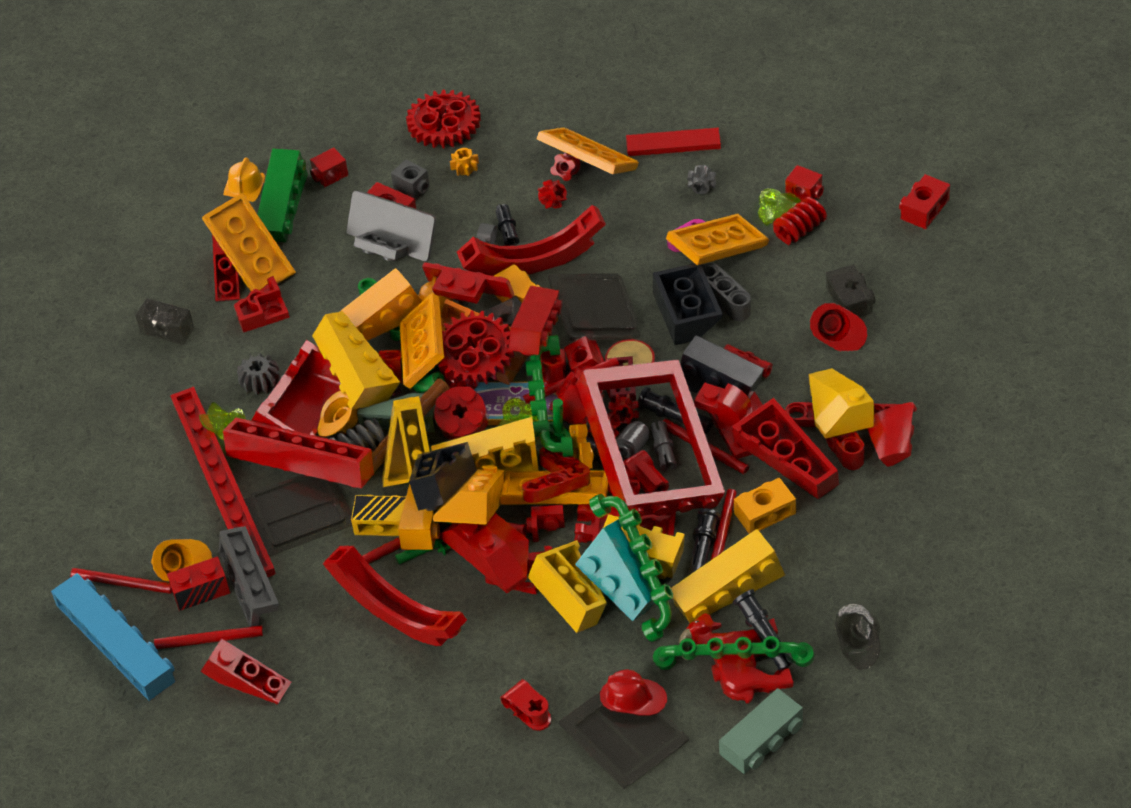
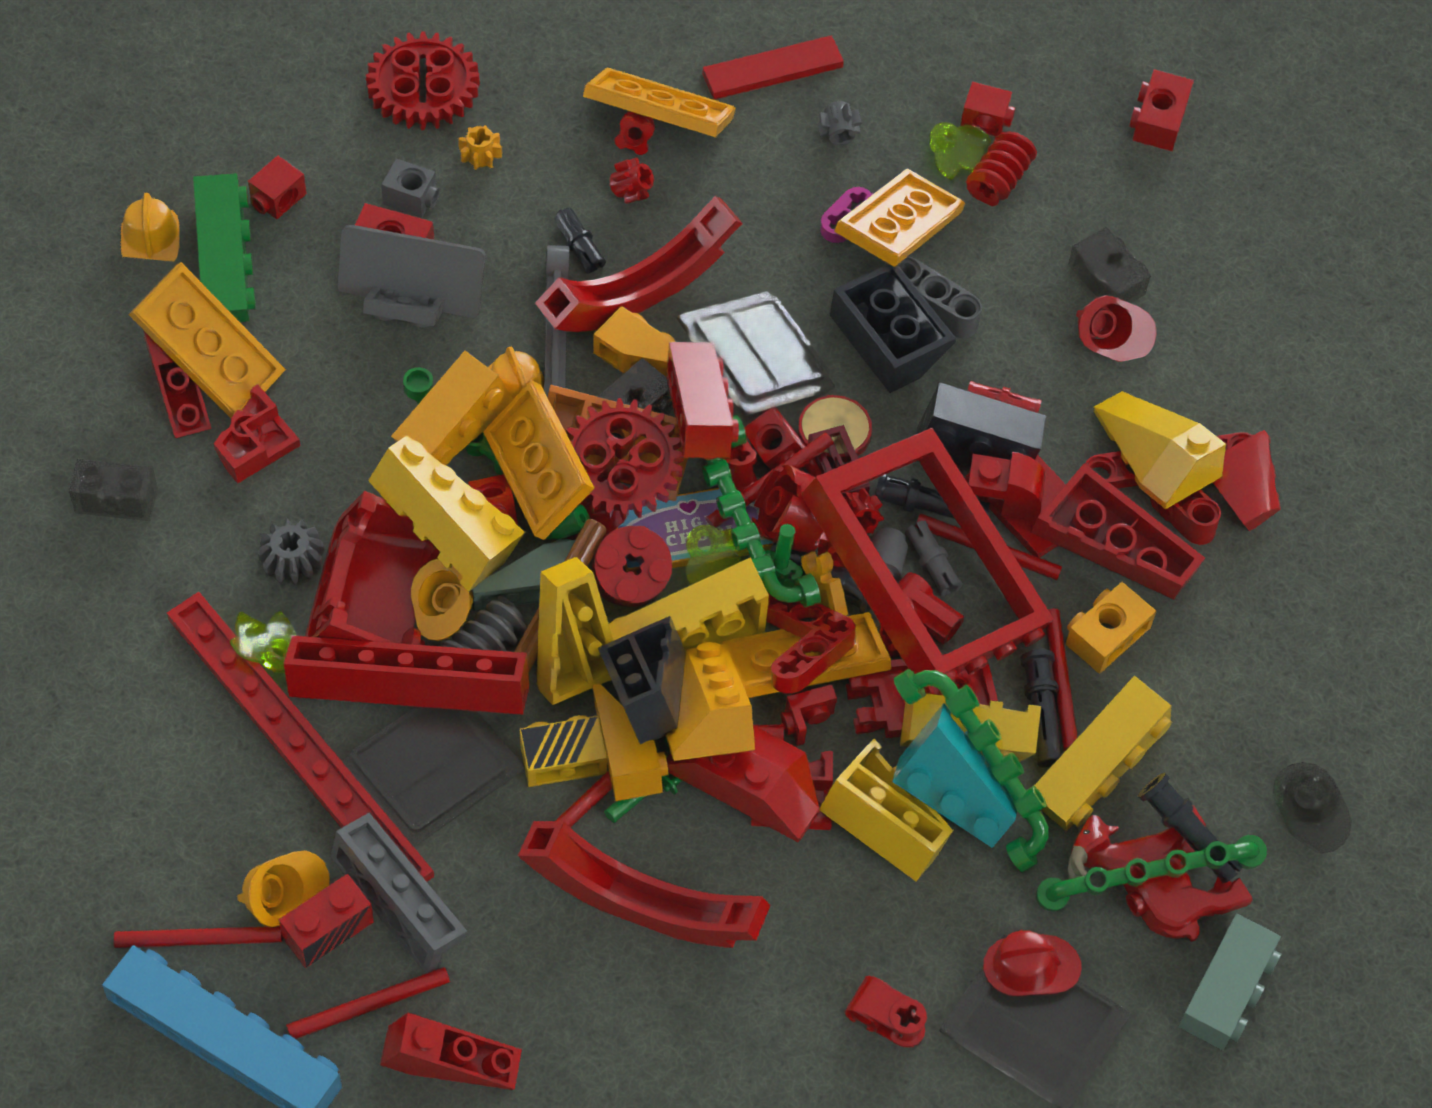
camera: 25 degrees left, 10 degrees up
(464, 284) = (563, 354): red bracket -> none

